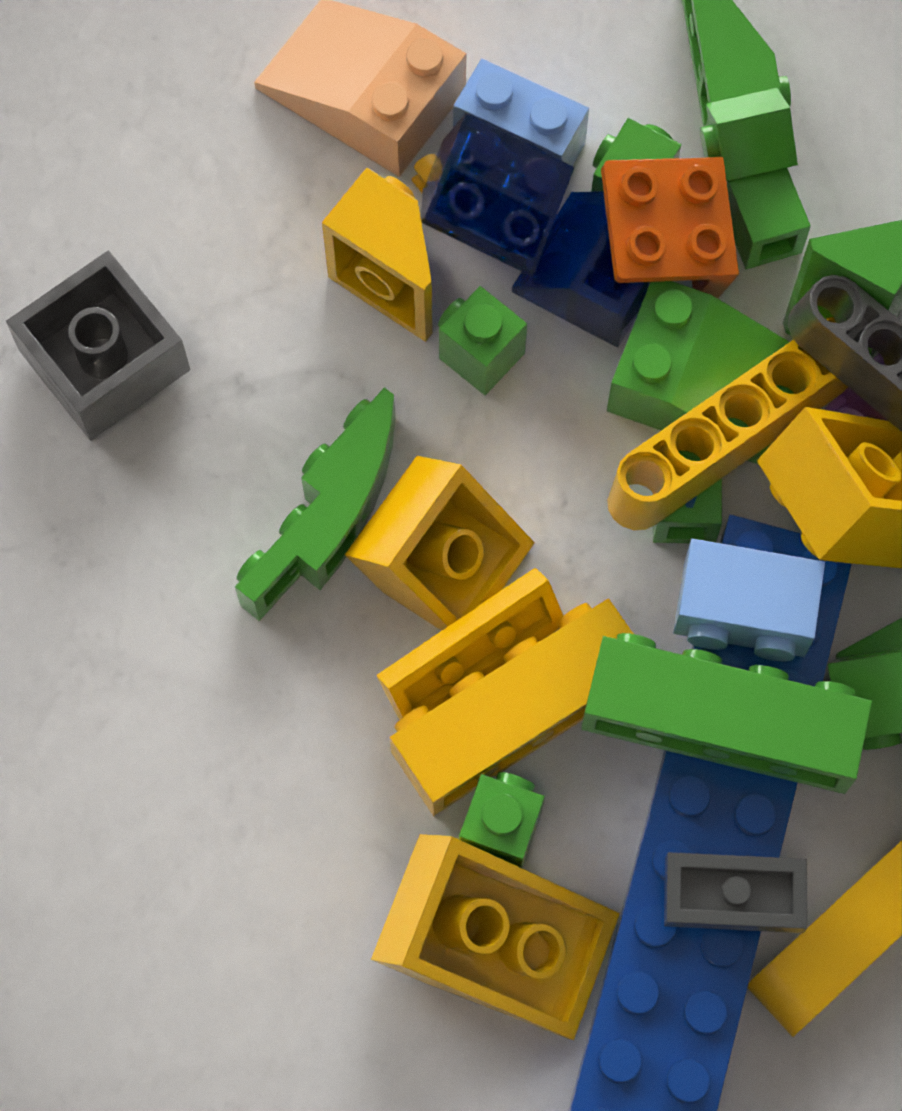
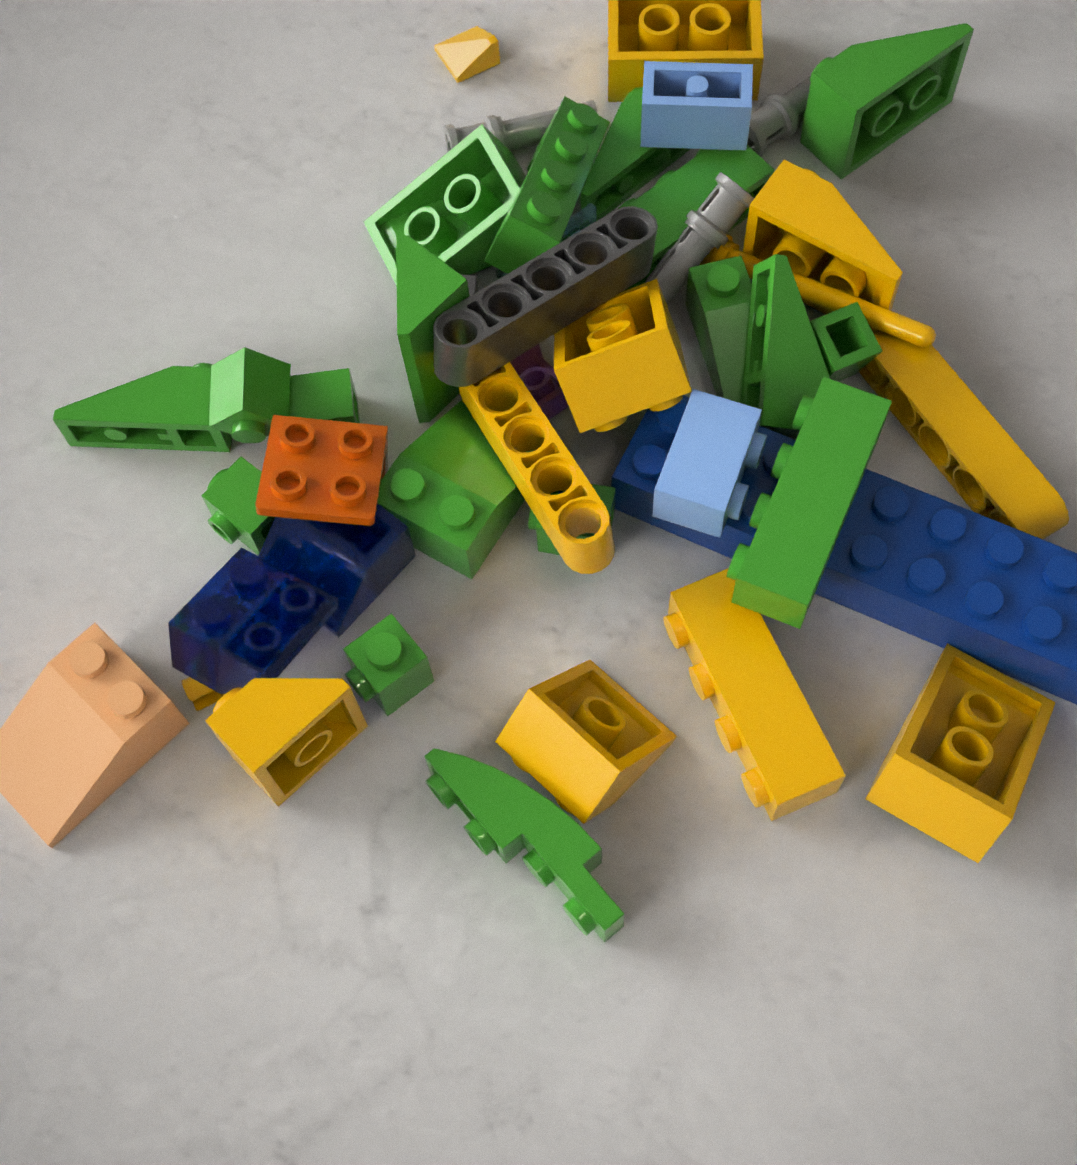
camera: 75 degrees left, 5 degrees down
(99, 345) = (310, 1039): flat silver brick -> none
(472, 644) = (689, 725): yellow plate -> none
(503, 817) = (862, 722): bright green brick -> none
(524, 111) = (164, 589): light blue brick -> none
(735, 892) = (971, 523): dark grey plate -> none

